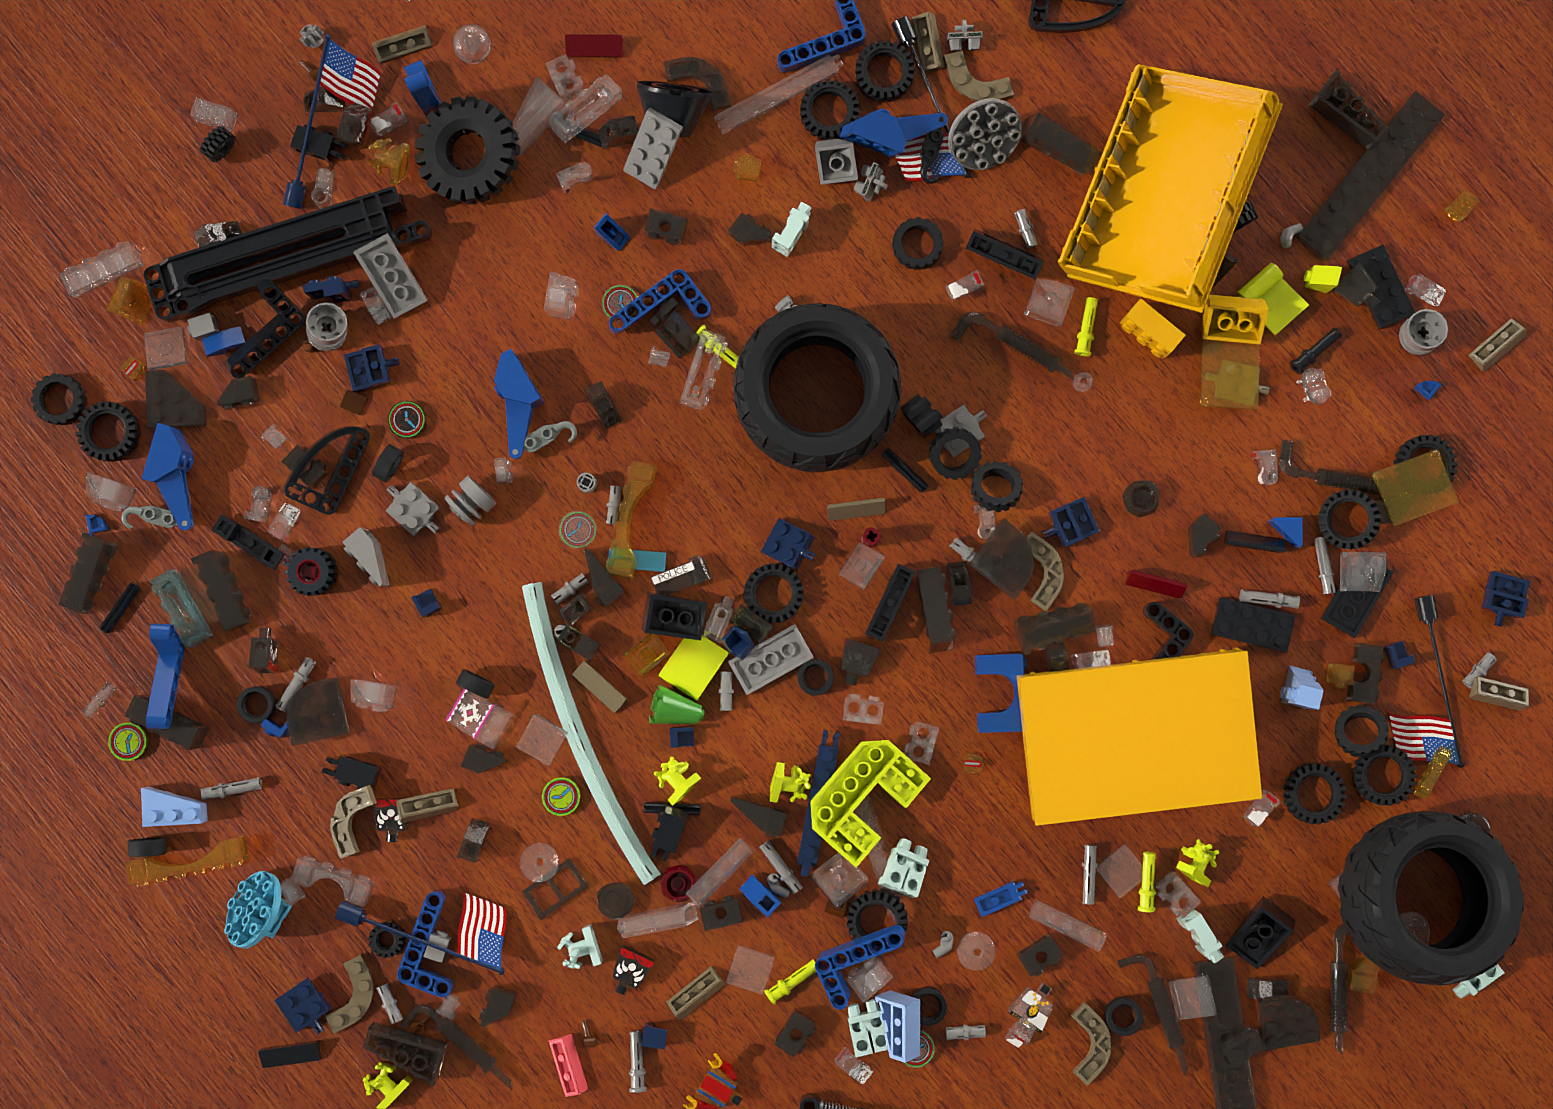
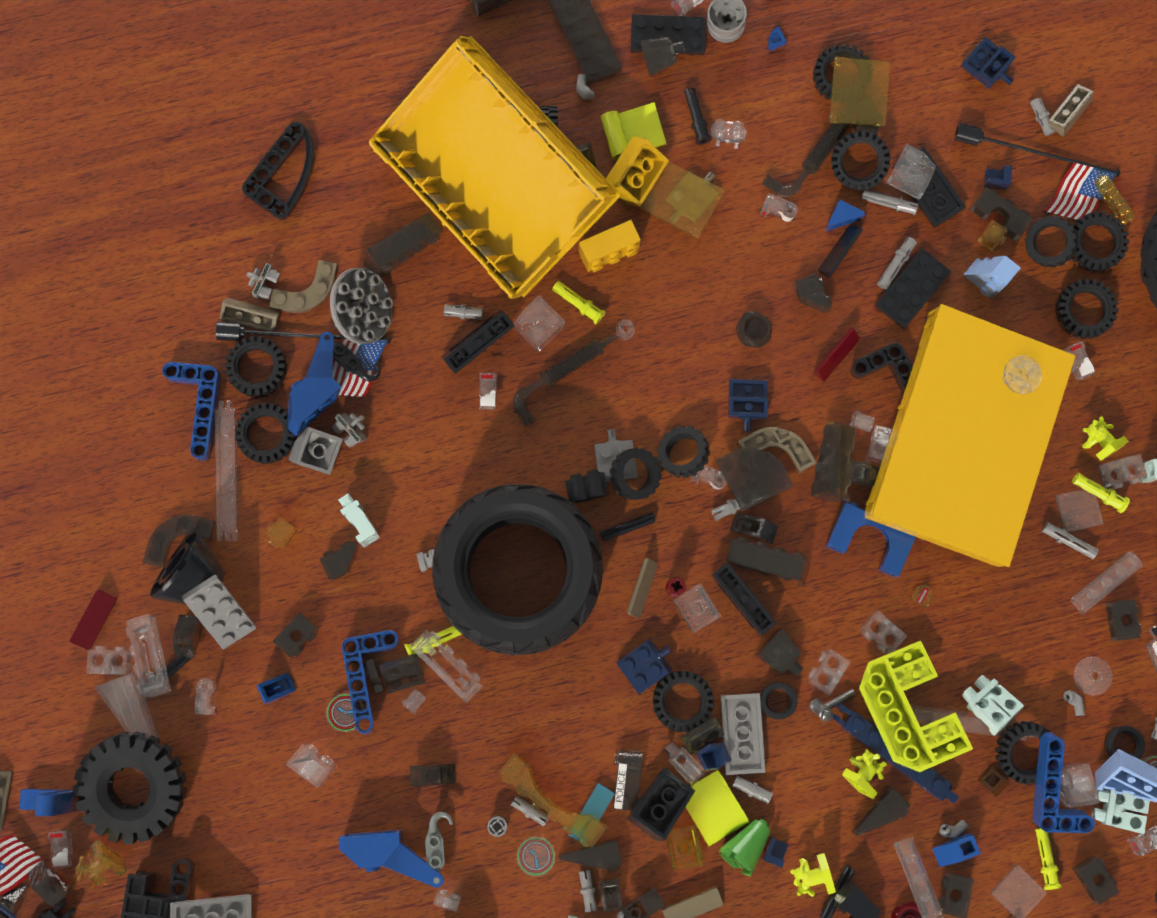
camera: 70 degrees left, 5 degrees down
(471, 43) = (31, 733): clear cylinder -> none
(780, 866) = (945, 816): light grey pin -> none
(826, 721) = (824, 710): none -> flat silver piece
(839, 879) = (974, 769): clear slope -> none
(923, 224) = (413, 399): black tyre -> none
(999, 898) = (1055, 631): blue hinge -> none
(1209, 755) = (1018, 382): none -> clear plate
(1322, 278) = (636, 79): neon yellow slope -> none

